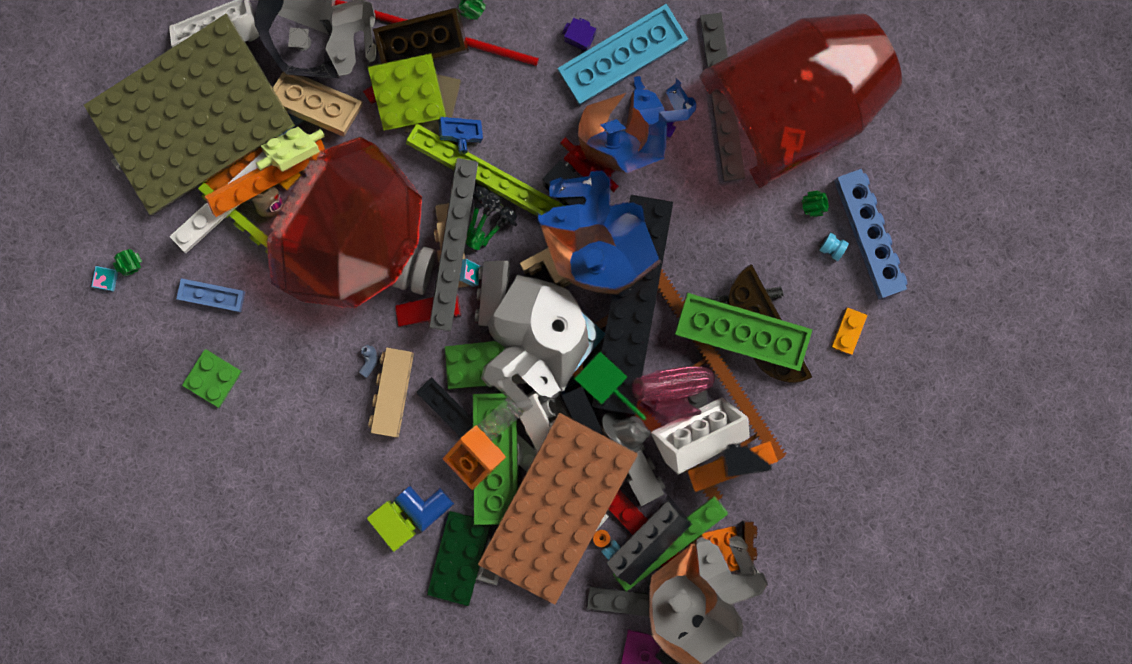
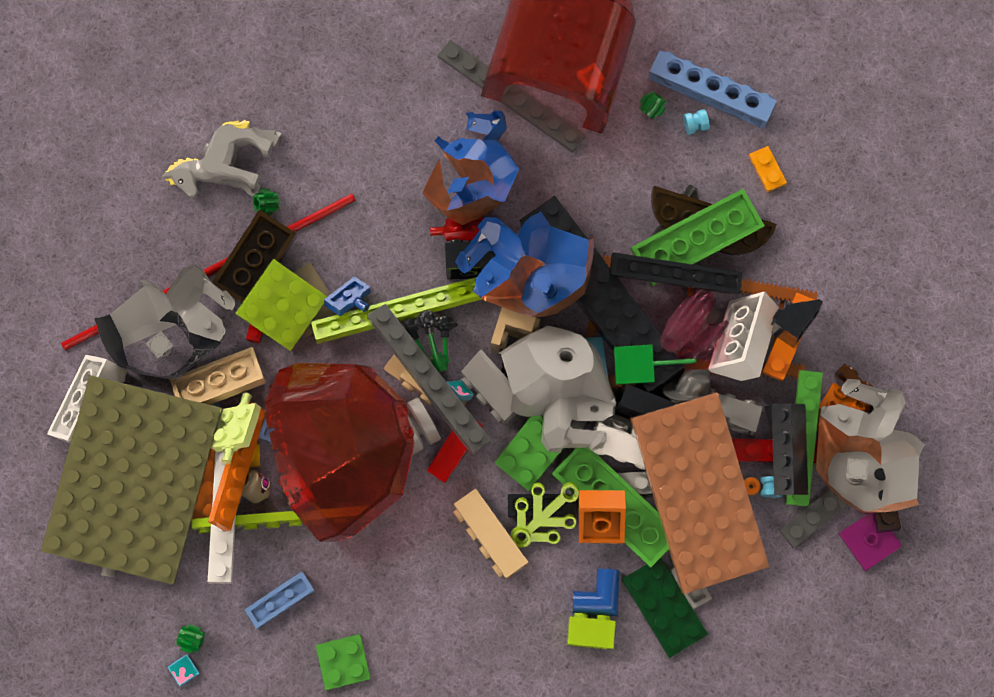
camera: 50 degrees left, 10 degrees down
(370, 358) = (448, 527): sand blue arm -> none
(438, 417) = (542, 517): none -> lime plant
(500, 419) = (592, 468): clear plate -> none
(579, 33) = (364, 148): dark purple brick -> none
(622, 54) = (410, 134): medium azure plate -> none
(698, 343) = (675, 273): none -> black plate

